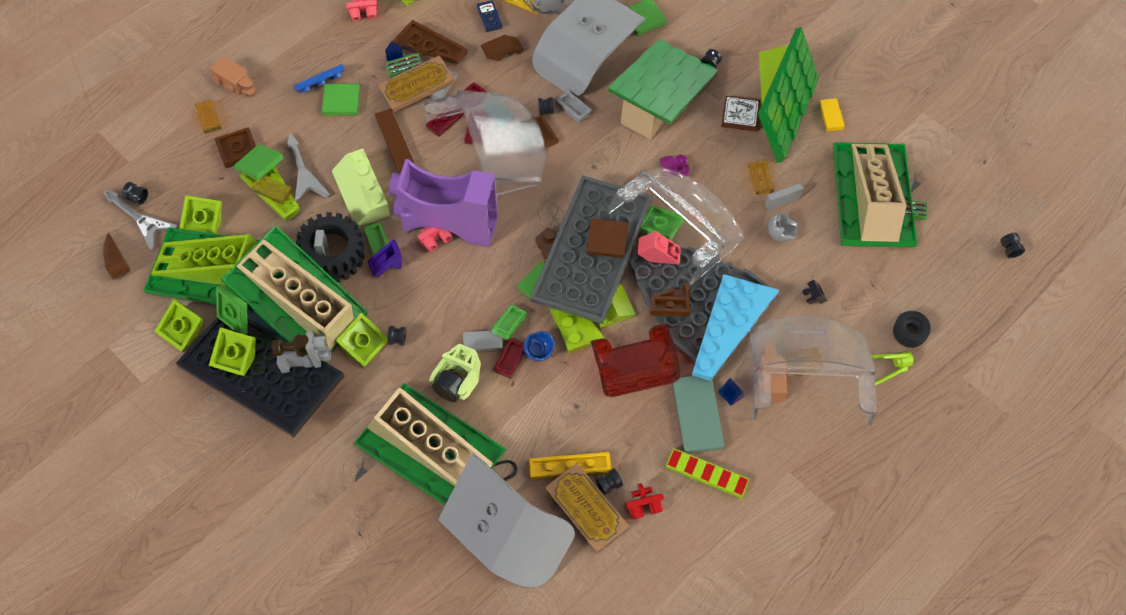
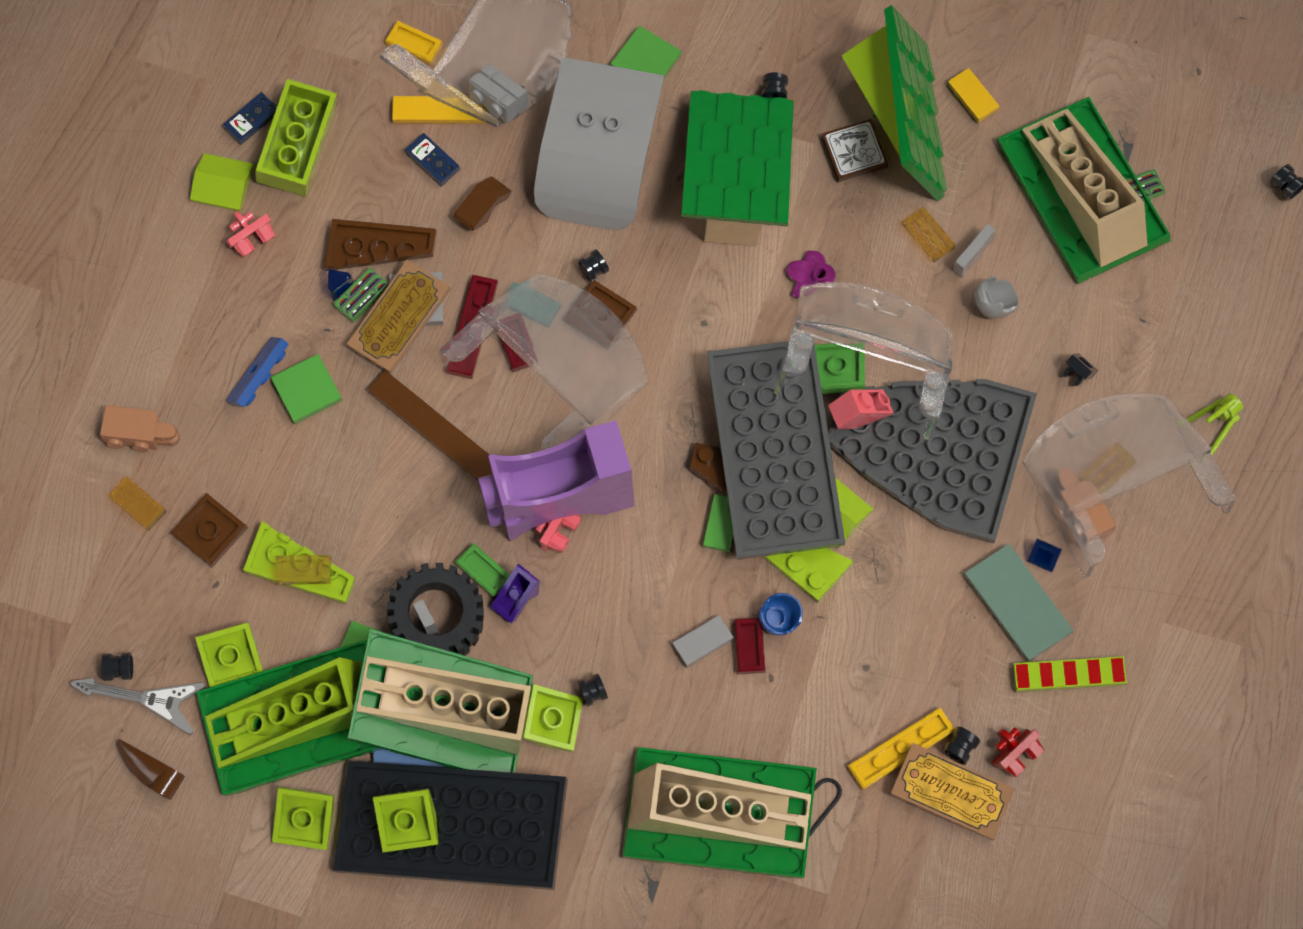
camera: 25 degrees left, 10 degrees up
(231, 309) = (371, 766): bright green tile -> none
(258, 162) = (261, 540): bright green tile -> none
(303, 351) = (505, 777): light grey hips -> none
(305, 179) = (335, 532): light grey piece -> none
(360, 189) = (418, 509): yellowish green slope -> none
(460, 360) = (700, 723): yellowish green piece -> none
(504, 528) = (873, 868): light grey door -> none
(509, 322) = (723, 599): bright green tile -> none
(573, 106) = (628, 247): light grey tile -> none
(607, 238) = (791, 427): reddish brown tile -> none
(638, 364) = (913, 574): clear red windscreen -> none
(671, 302) = (915, 473): reddish brown wing -> none
(732, 317) = (997, 453): medium azure wing -> none
(907, 338) = (1223, 346): black tyre -> none

